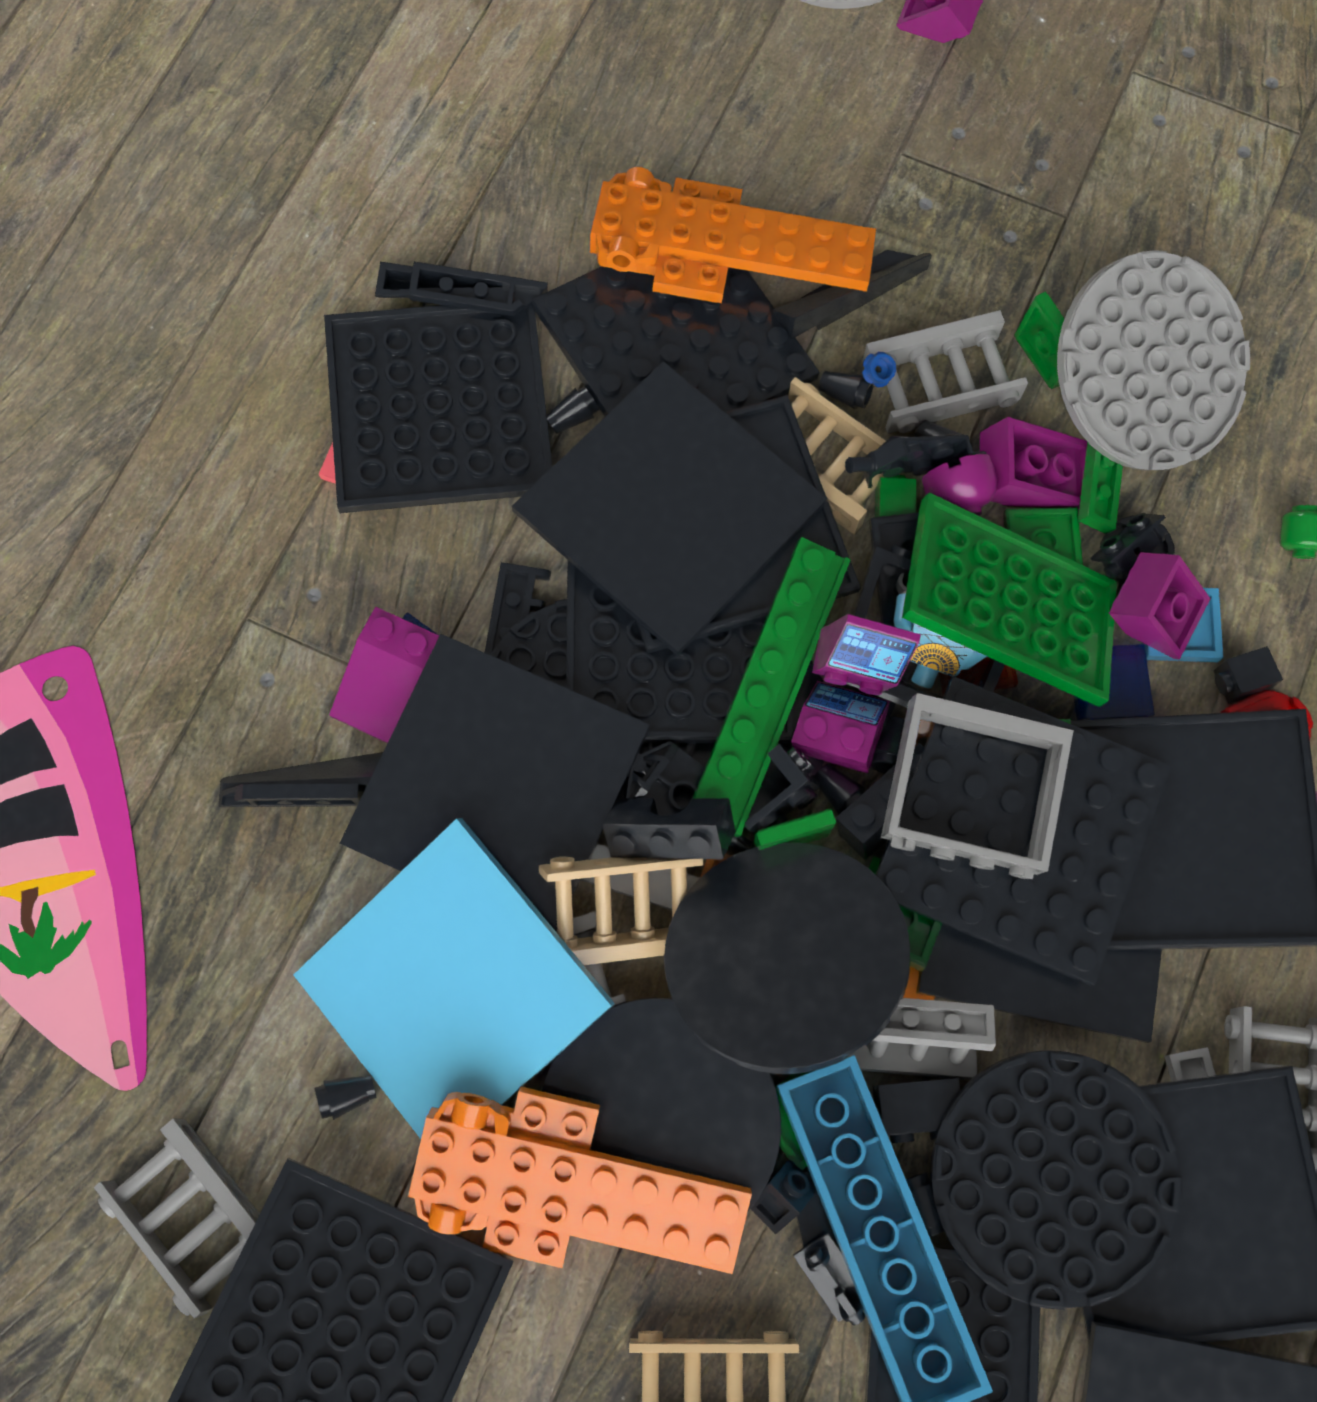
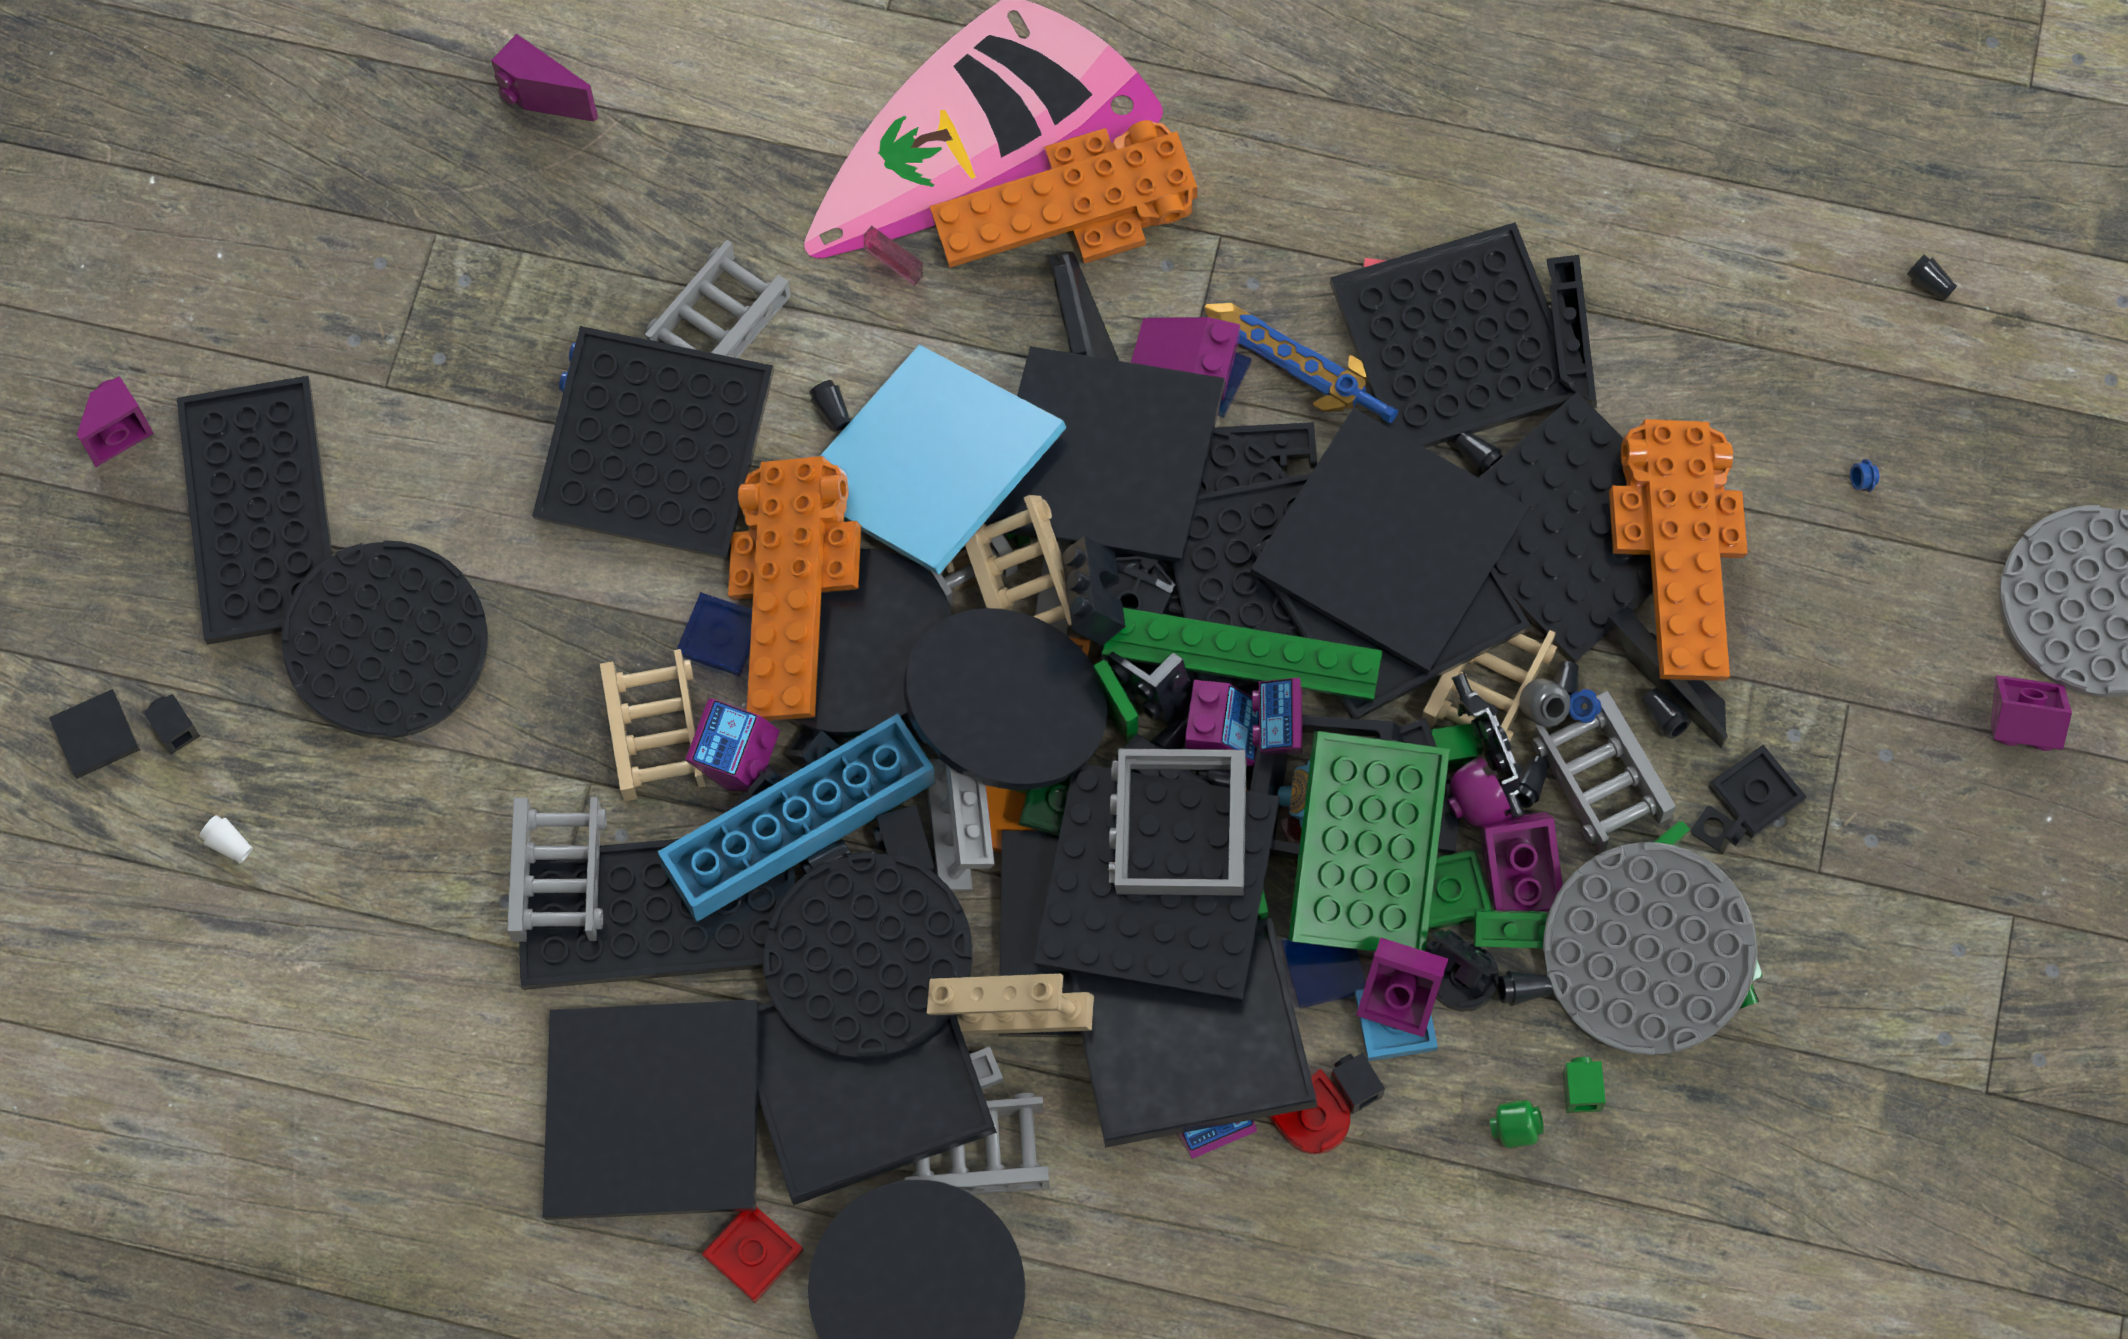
camera: 80 degrees right, 5 degrees down
(153, 740) = (1092, 189): none -> orange piece
(170, 984) = (893, 255): none -> clear pink tile
(425, 561) = (1341, 386): none -> sword
(607, 1289) = (718, 634): none -> clear blue tile
(678, 85) = (1864, 475): none -> blue plate
(769, 1299) = (731, 745): none -> slope
(874, 400) = (1544, 702): none -> dark grey head
(890, 303) = (1667, 714): none -> black cone
(981, 246) = (1758, 788): none -> black tile
(1025, 275) = (1732, 830): none -> black bracket
(1156, 1019) = (1011, 1004): none -> tan fence
(1160, 495) = (1522, 987): none -> black cone
(1271, 462) = (1583, 1085): none -> green brick

